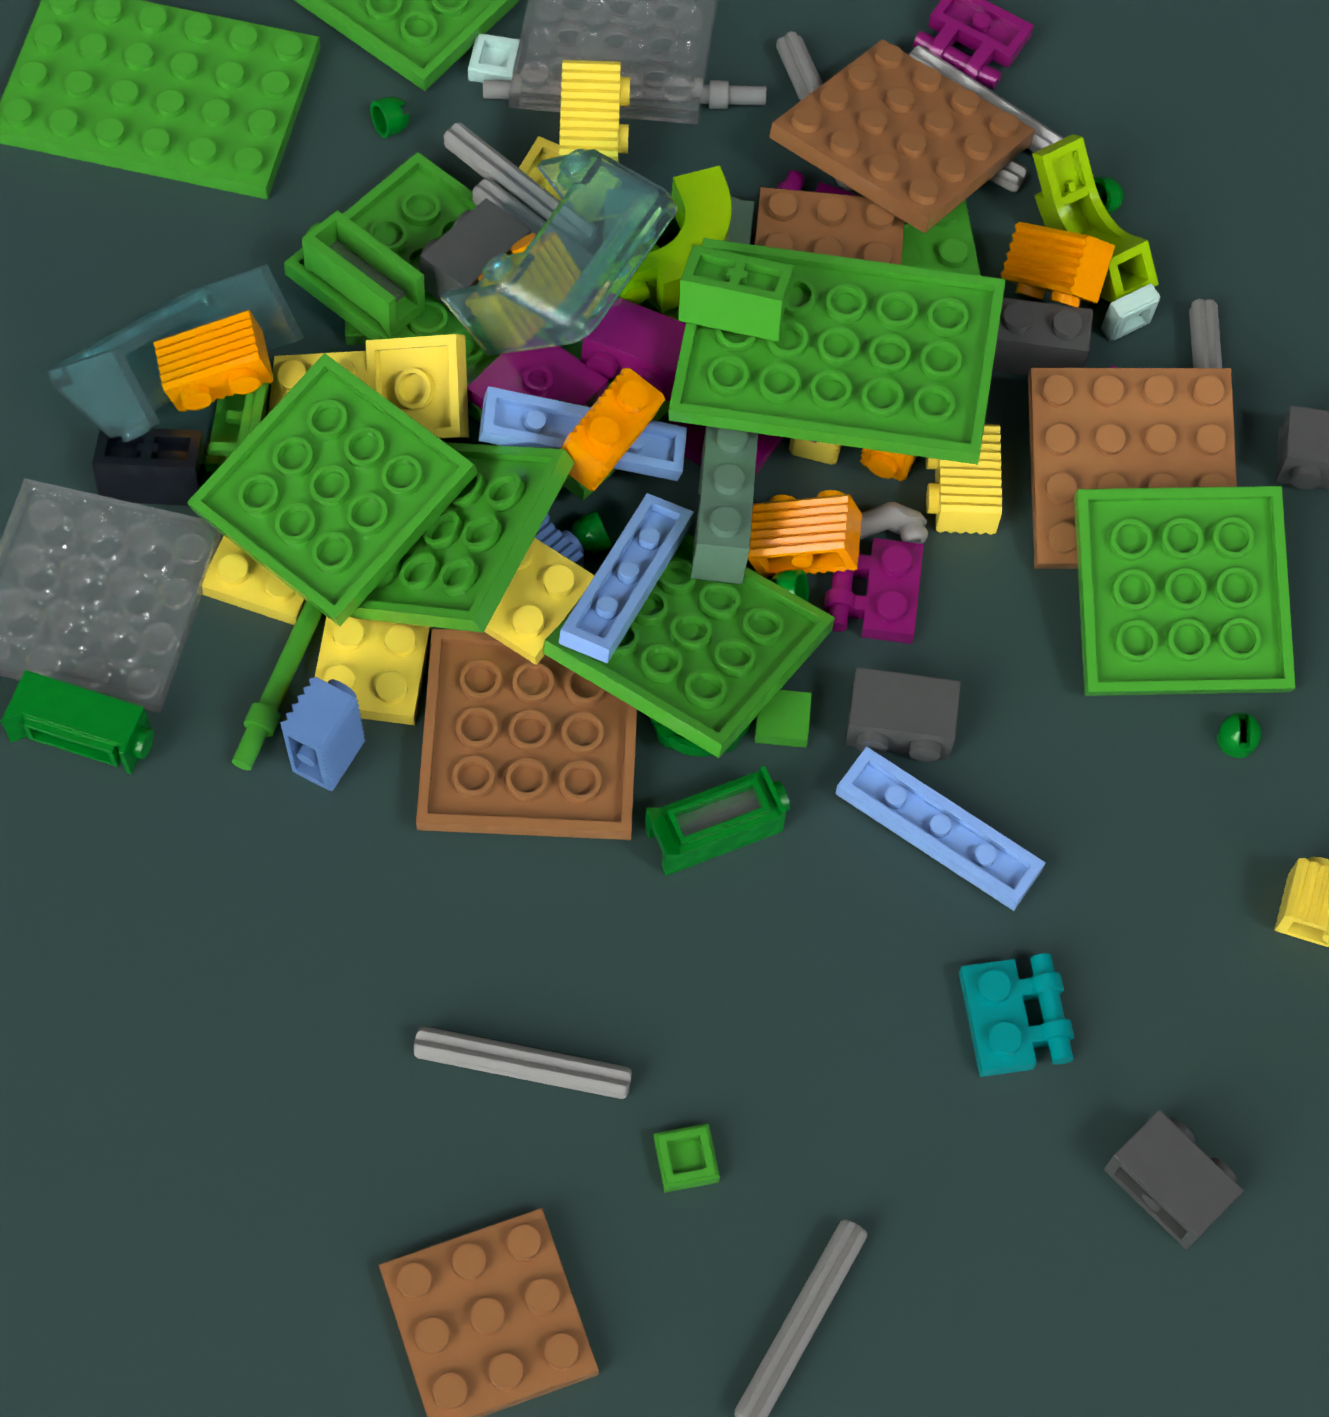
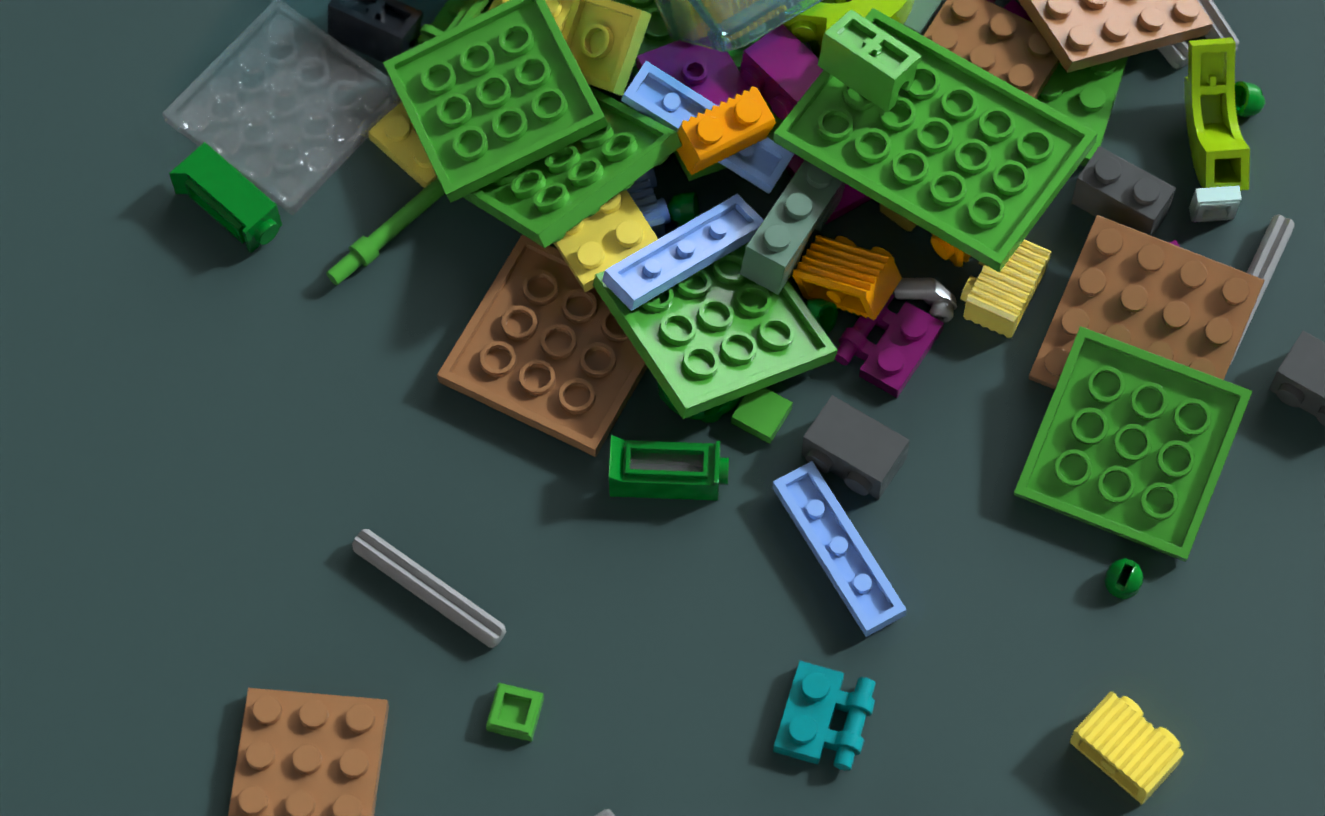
camera: 30 degrees right, 0 degrees up
(323, 732) = (398, 277): medium blue brick -> none
(379, 663) = (463, 247): light yellow plate -> none
(1057, 263) = (1166, 140): light orange brick -> none

